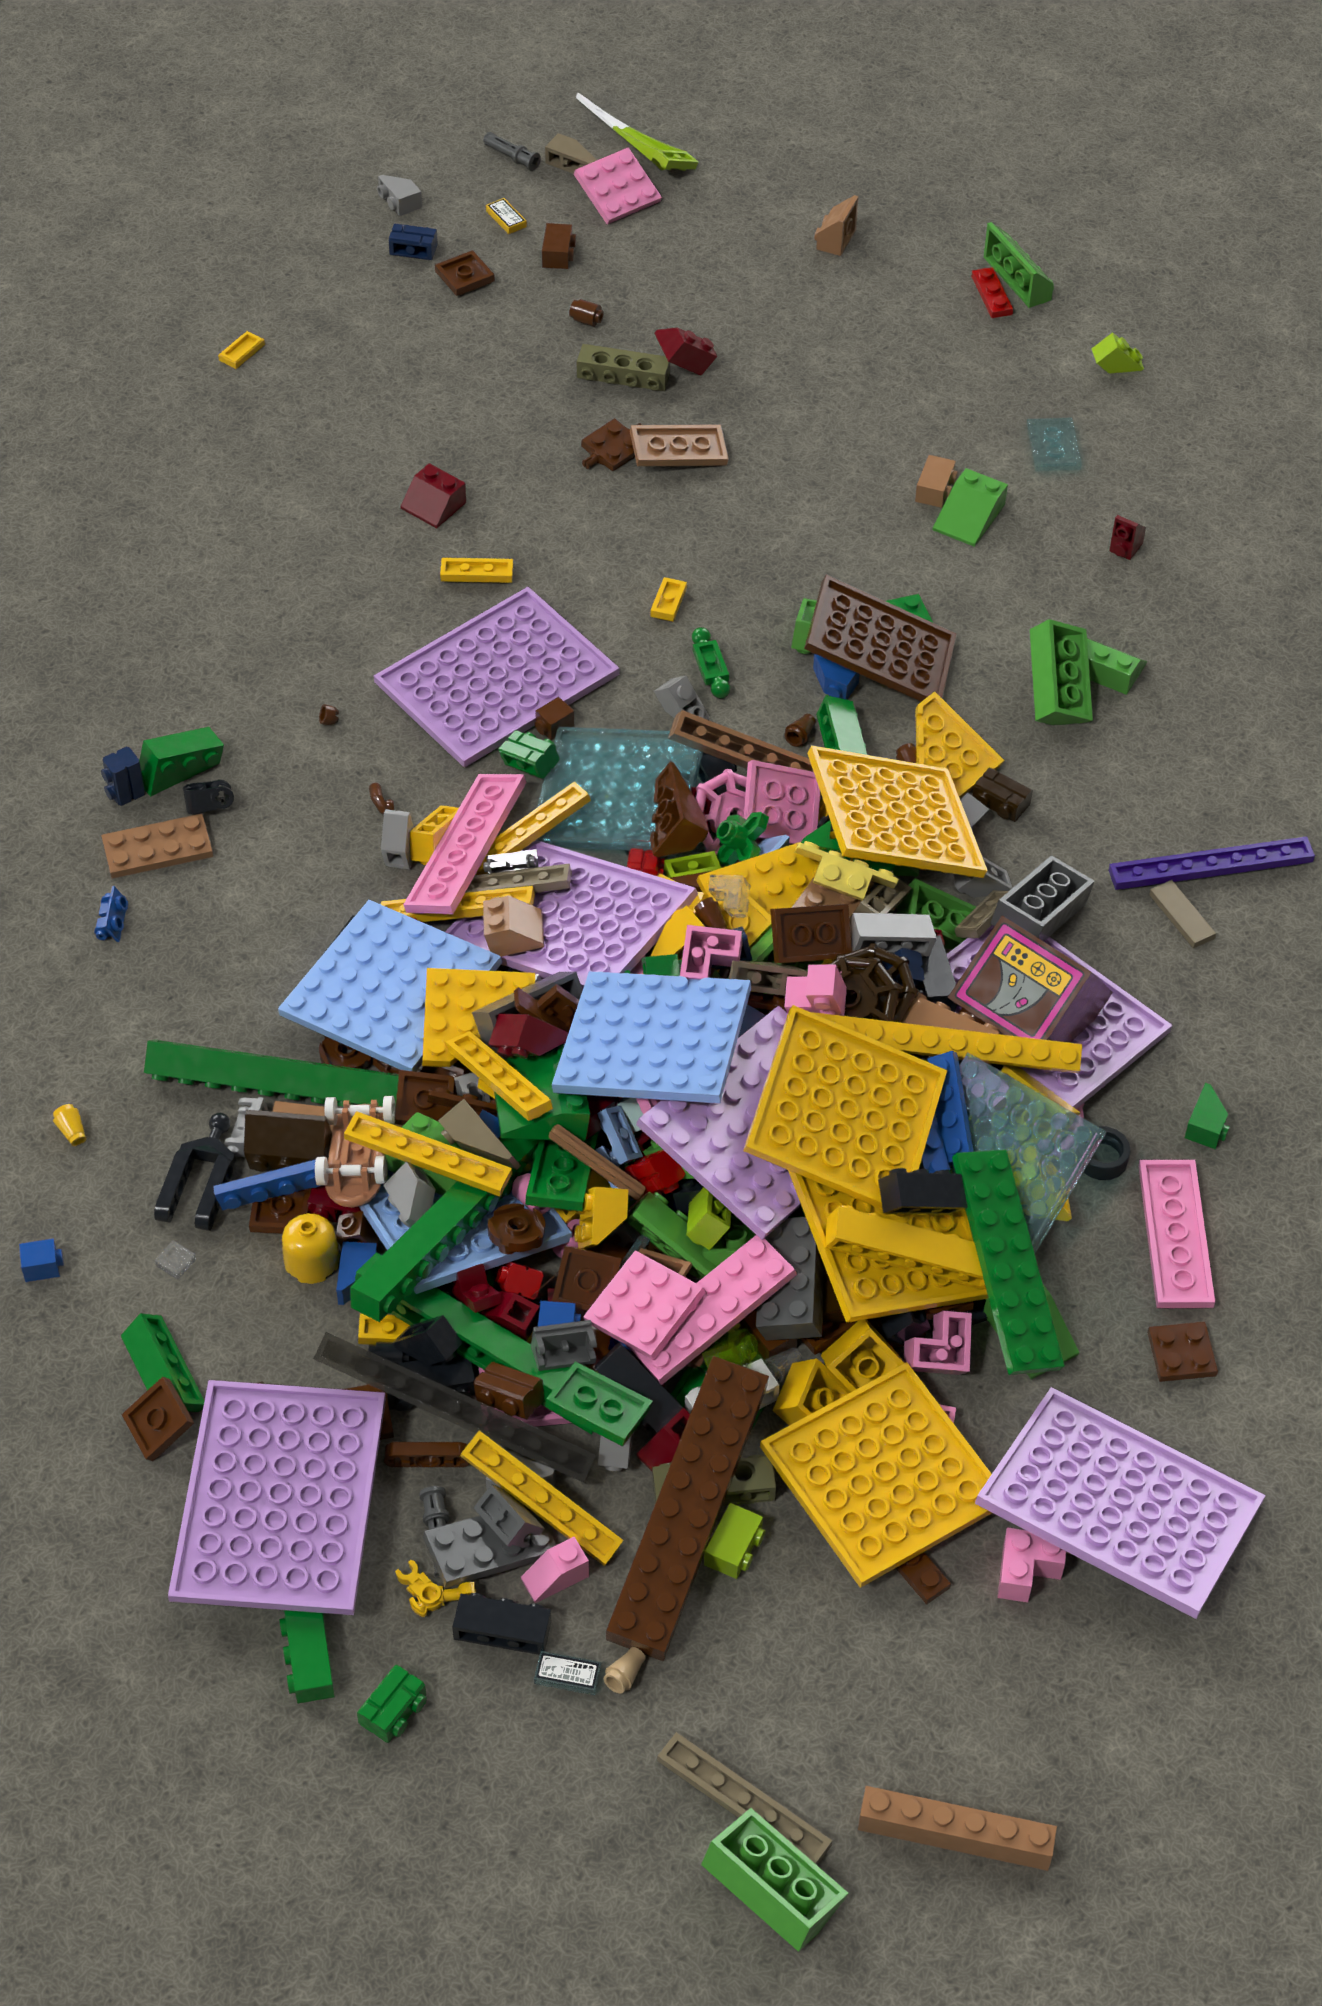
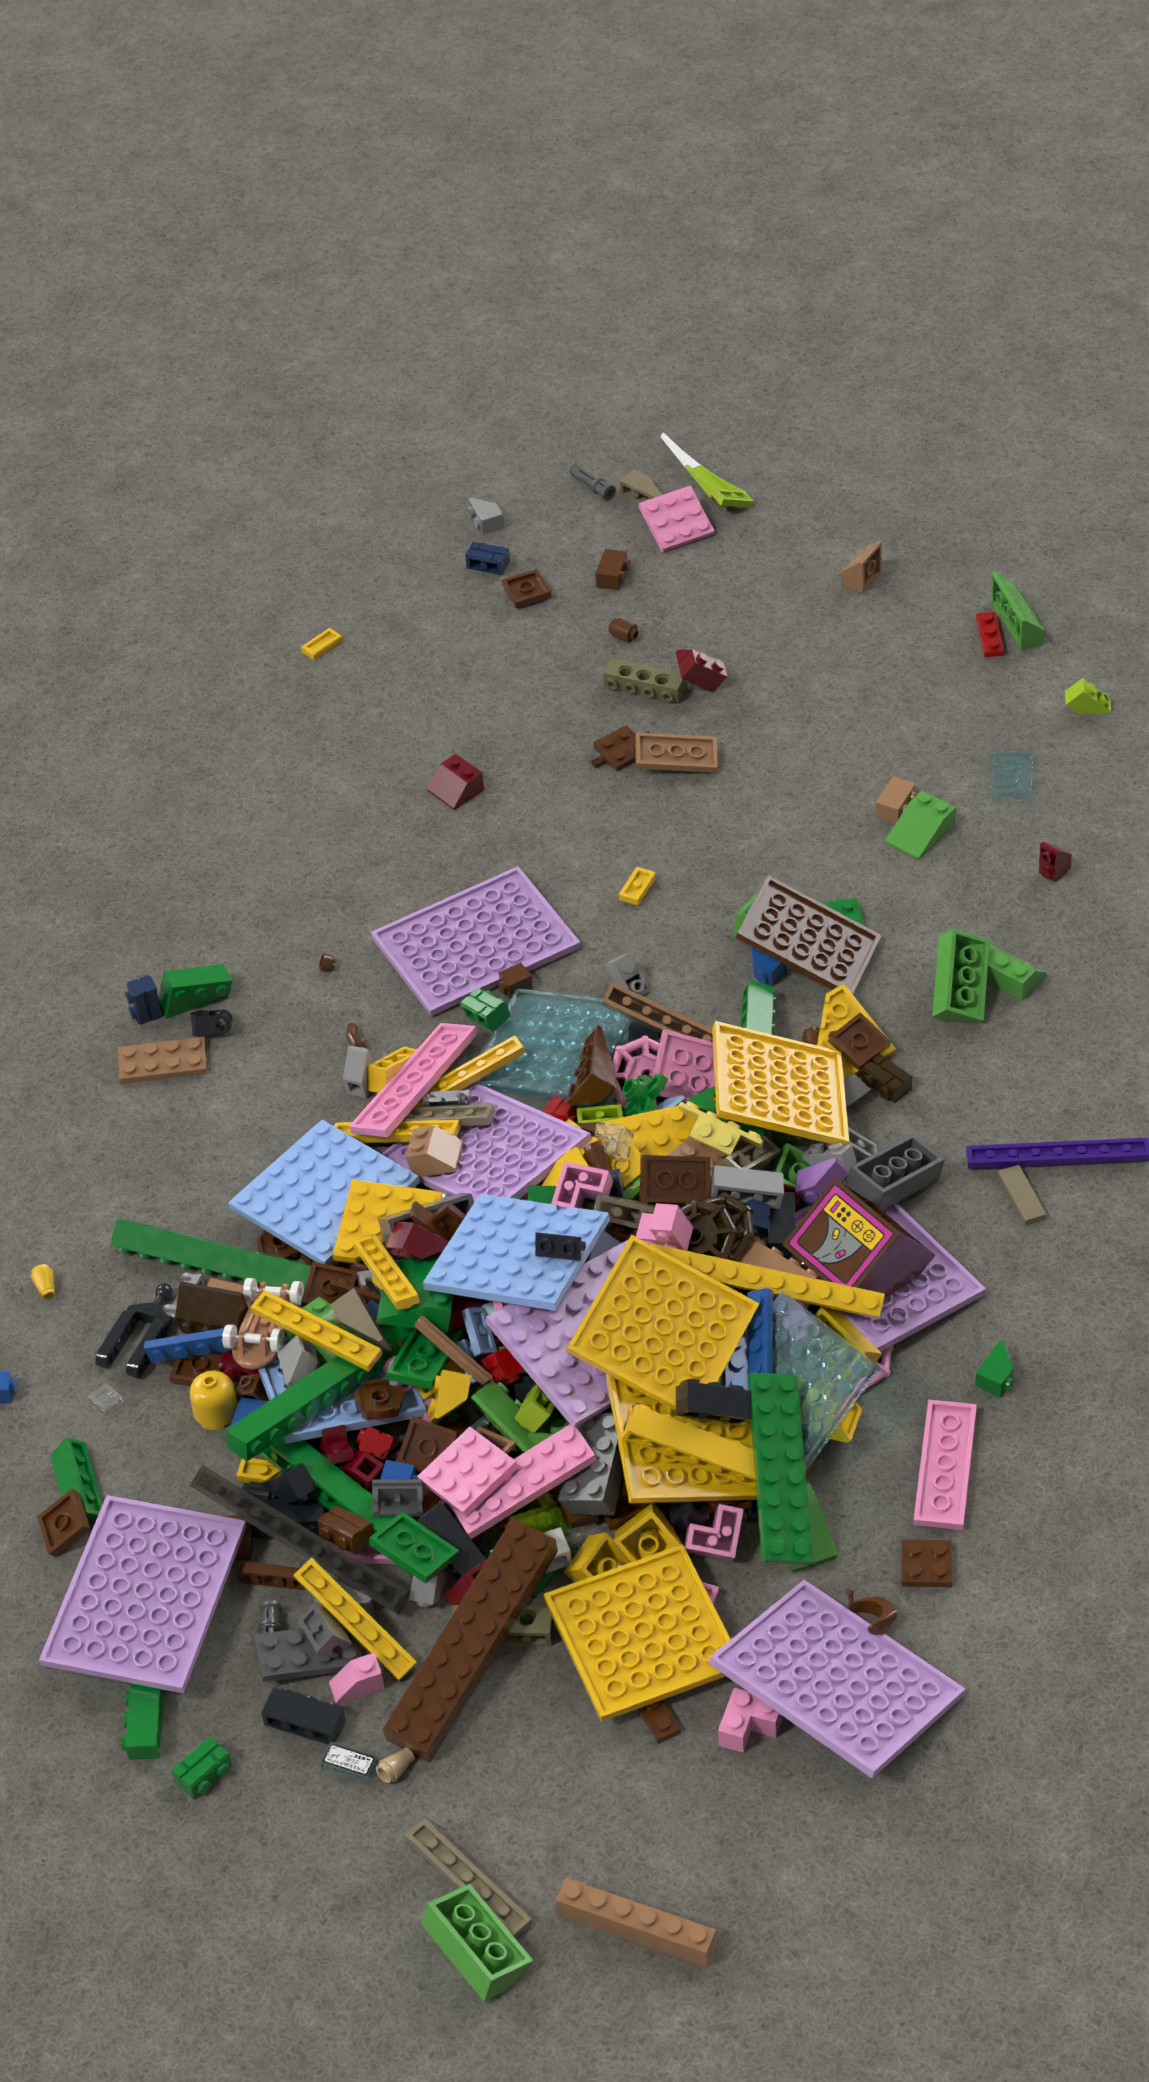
camera: 15 degrees right, 5 degrees down
(114, 908) = (113, 1114): blue hinge -> none
(429, 1595) = (250, 1686): yellow piece -> none
(476, 570) = (478, 848): yellow plate -> none
(506, 216) = (574, 539): tile -> none
(708, 1026) = (559, 1246): none -> black hinge
(710, 662) = (660, 943): green plate -> none
(734, 1541) = (507, 1673): lime brick -> none
(799, 731) = (723, 1008): reddish brown cone -> none
(964, 918) = (816, 1178): none -> medium lavender slope
(965, 755) = (859, 1041): none -> reddish brown plate
(969, 894) = (820, 1153): none -> light grey slope
(1111, 1170) = (894, 1405): black tyre -> none
(1142, 1410) = (876, 1606): none -> reddish brown helmet

